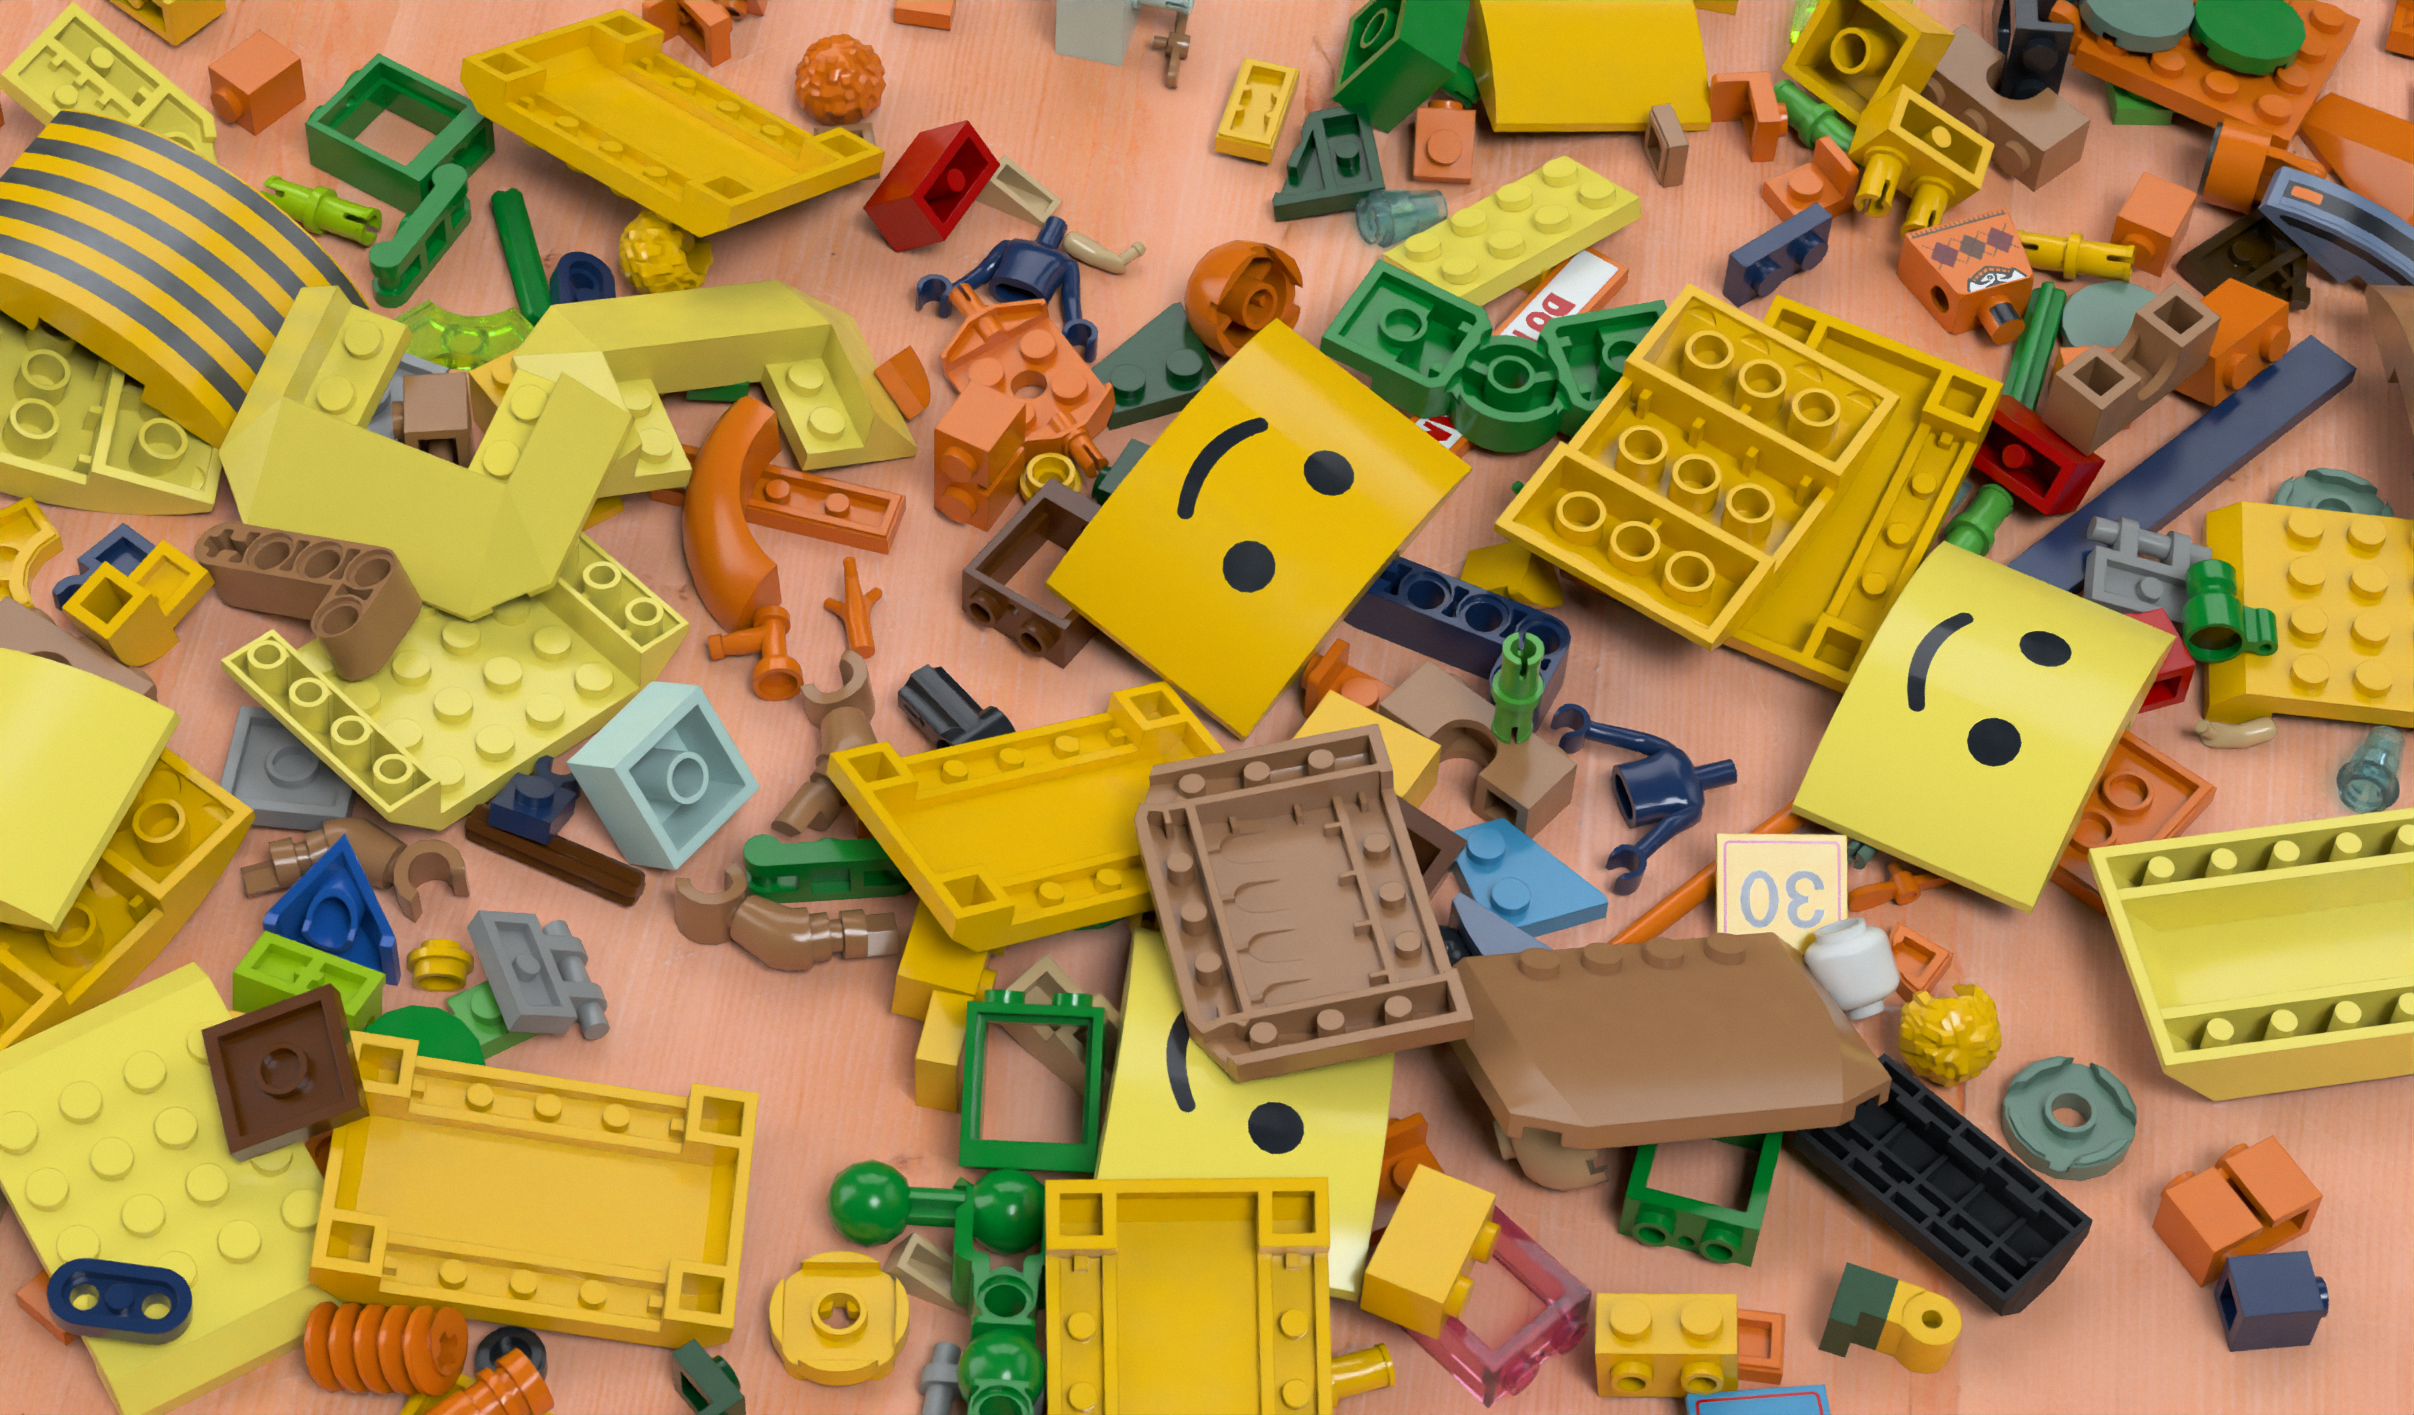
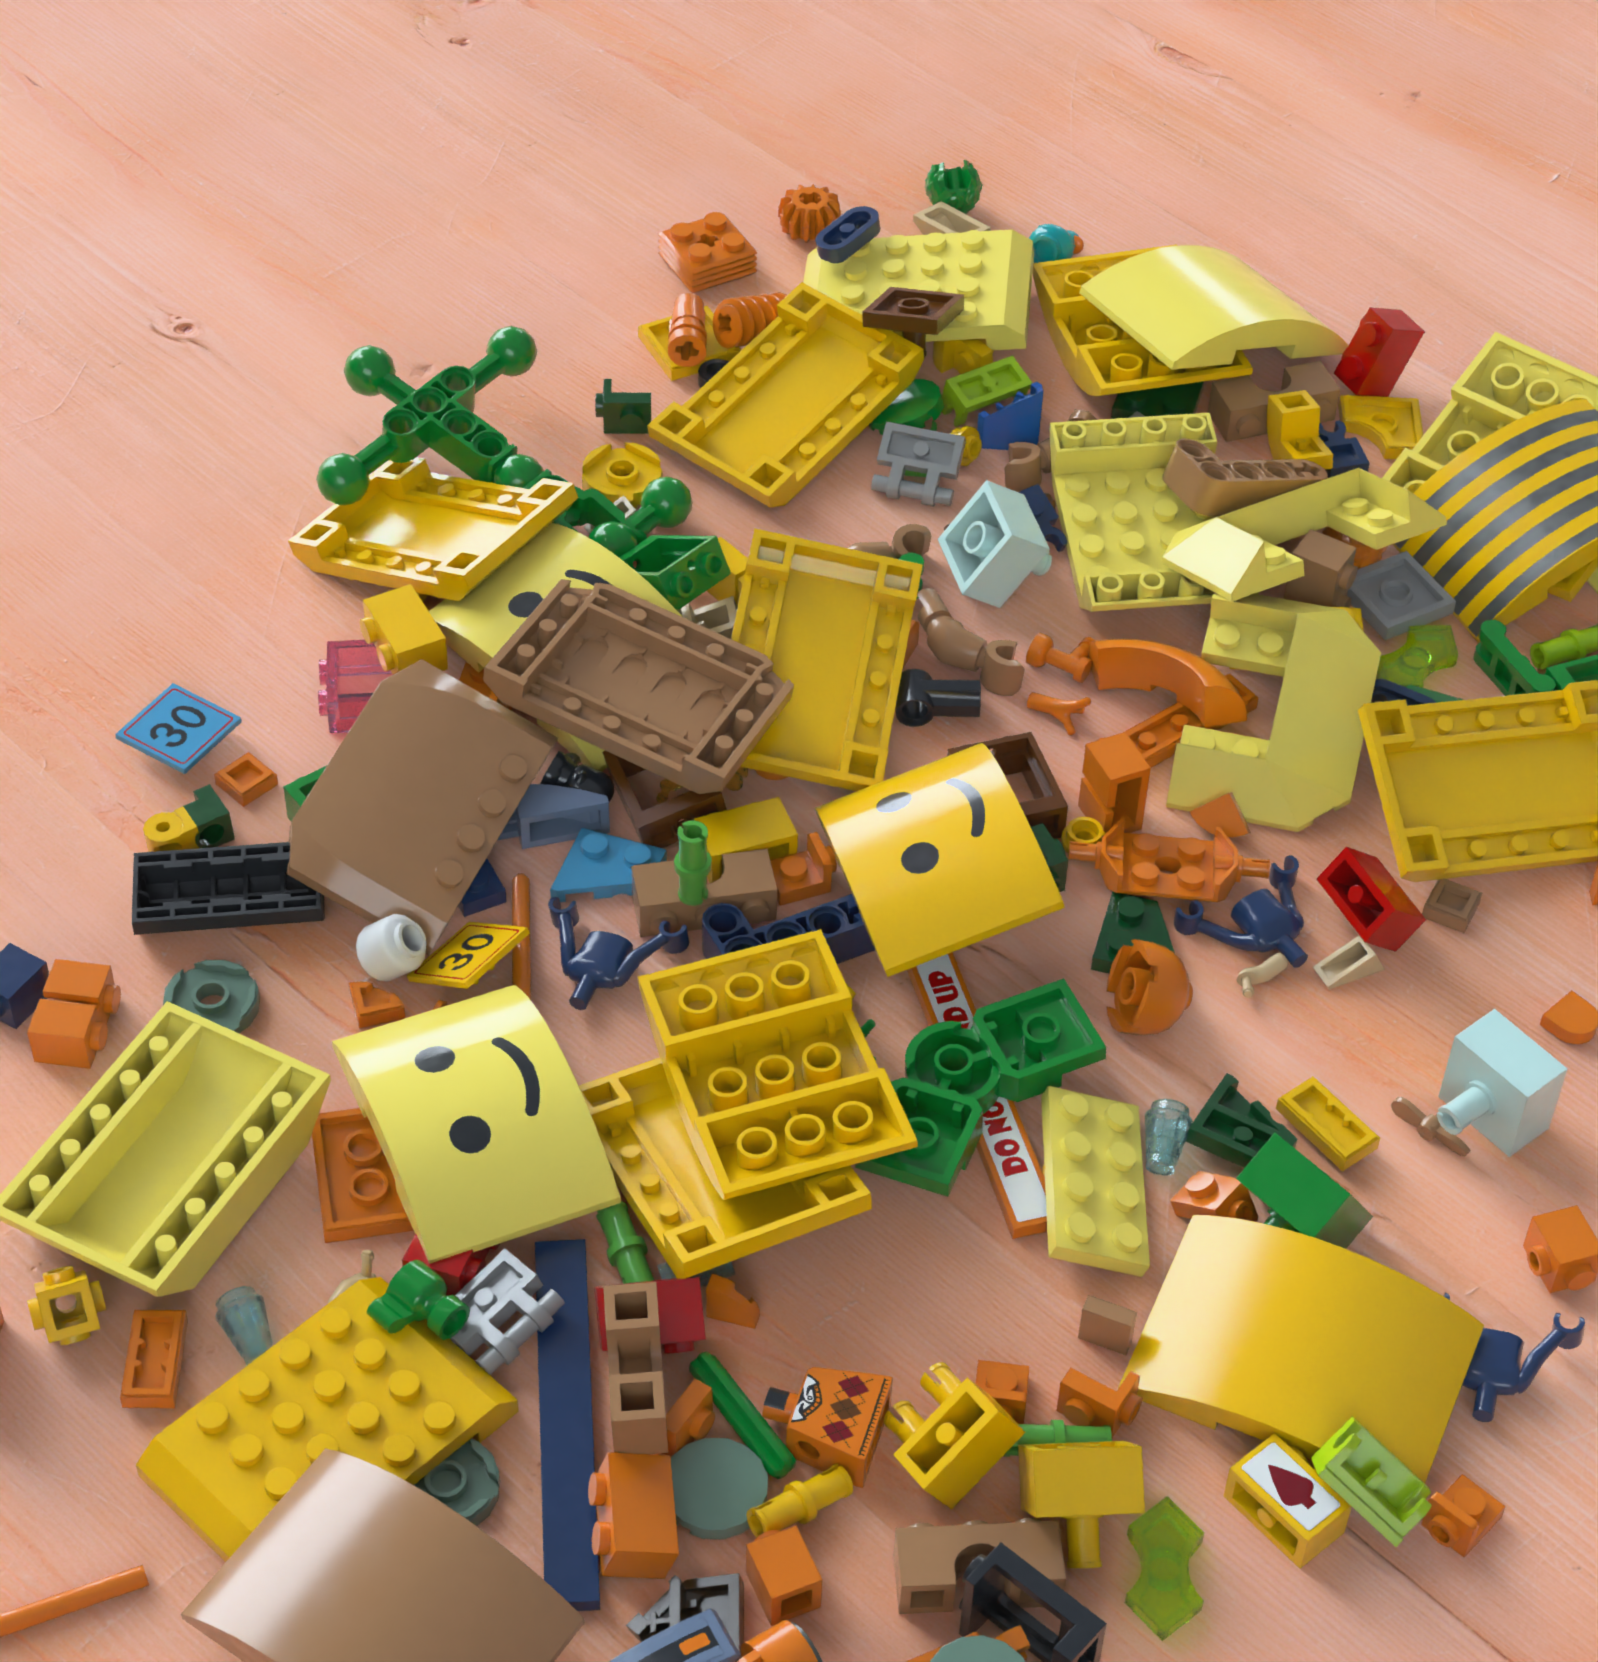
camera: 130 degrees right, 5 degrees down
(839, 80) = (1510, 914): orange piece -> none
(1666, 1344) = (271, 722): yellow brick -> none
(1777, 255) = (947, 1298): plate -> none
(1950, 1036) = (304, 957): yellow piece -> none

